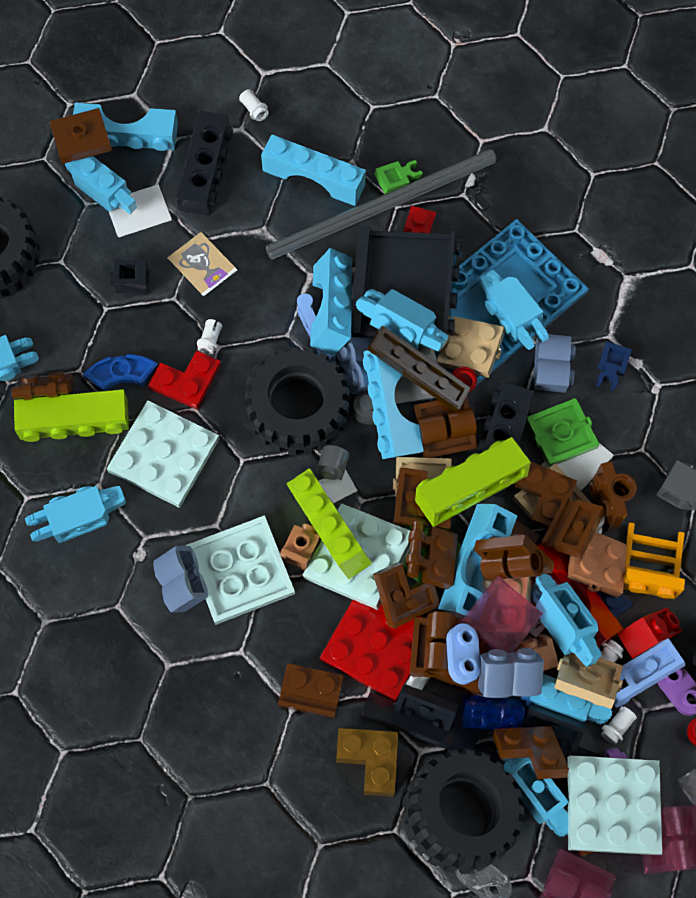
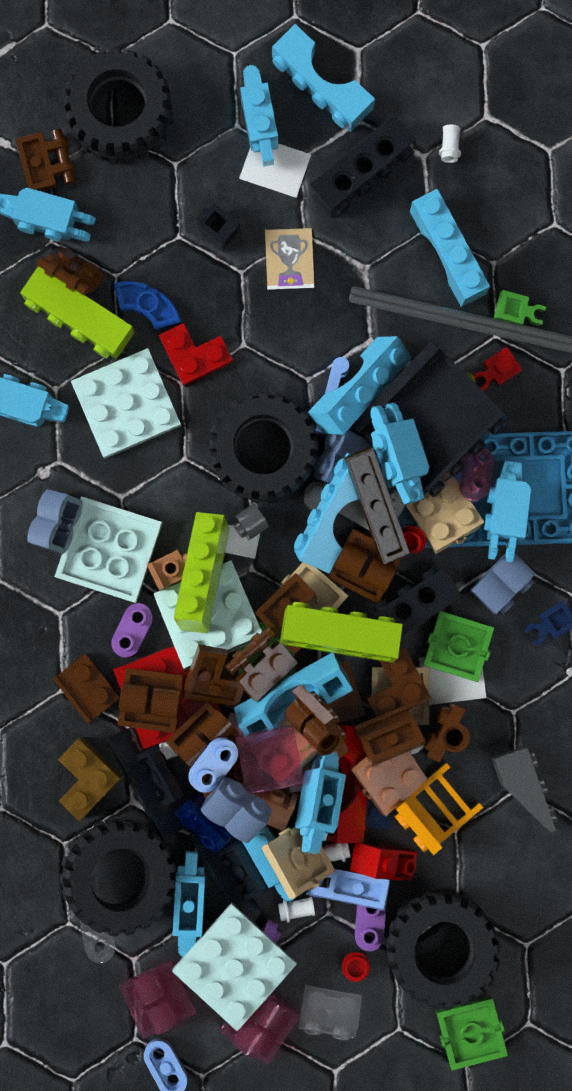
camera: 40 degrees right, 15 degrees up
(80, 135) = (272, 62): reddish brown plate -> none
(207, 343) = (240, 332): white pin -> none
(309, 616) = (134, 631): none -> medium lavender plate
(371, 652) = (150, 700): none -> reddish brown plate
(470, 301) = (479, 472): none -> clear pink plate
(537, 744) = (215, 877): reddish brown plate -> none

